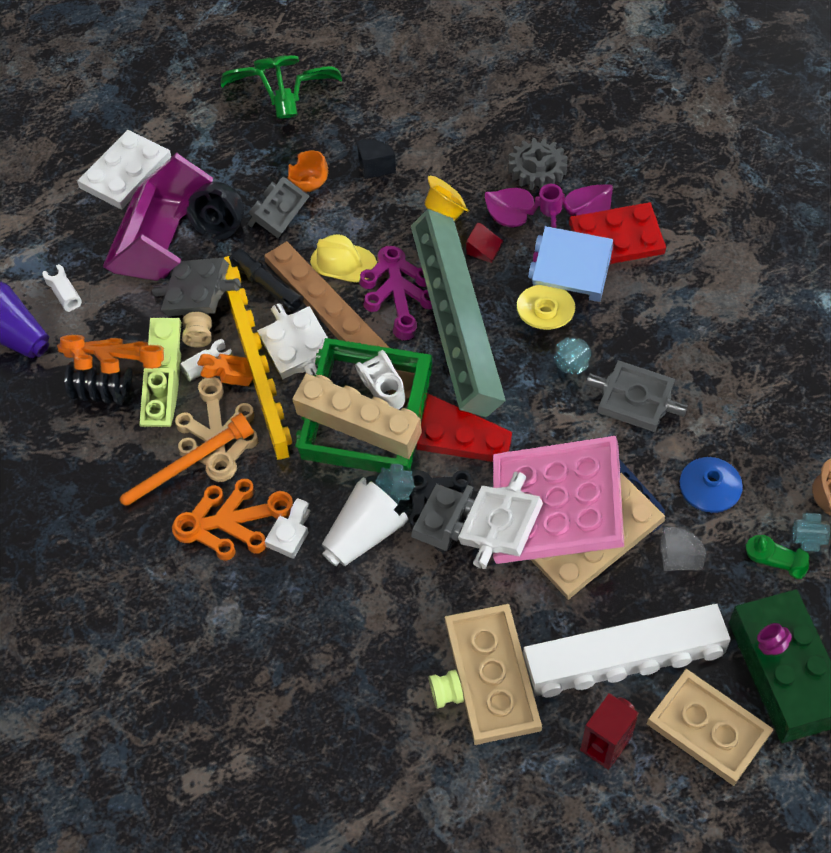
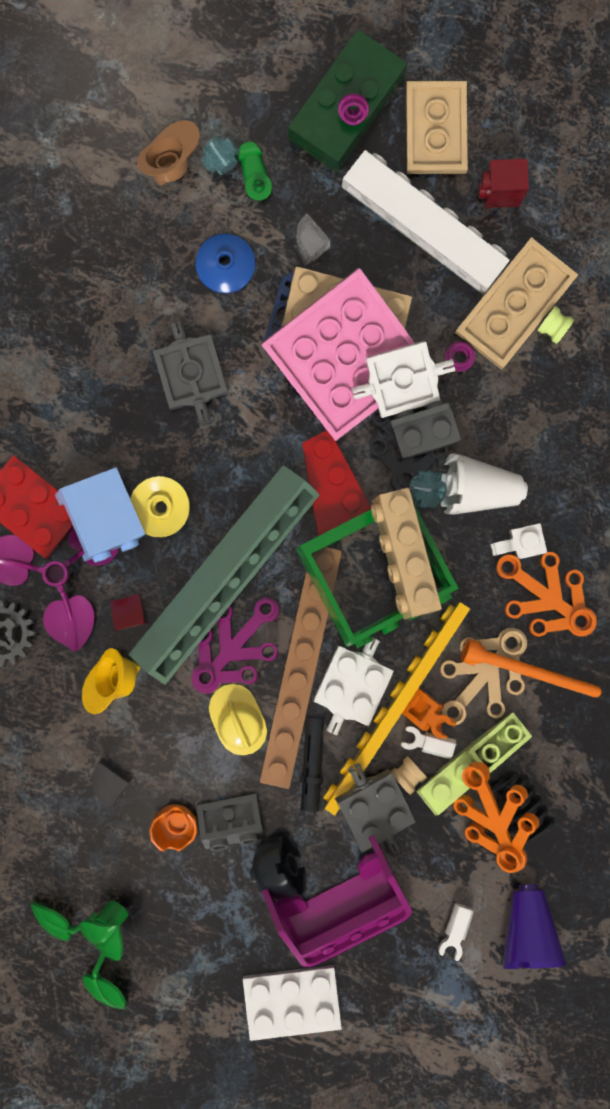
camera: 135 degrees left, 30 degrees up
(380, 377) = (357, 564): white piece -> none
(484, 588) = (463, 348): none -> magenta plate
(572, 355) = (193, 448): clear light blue gear -> none

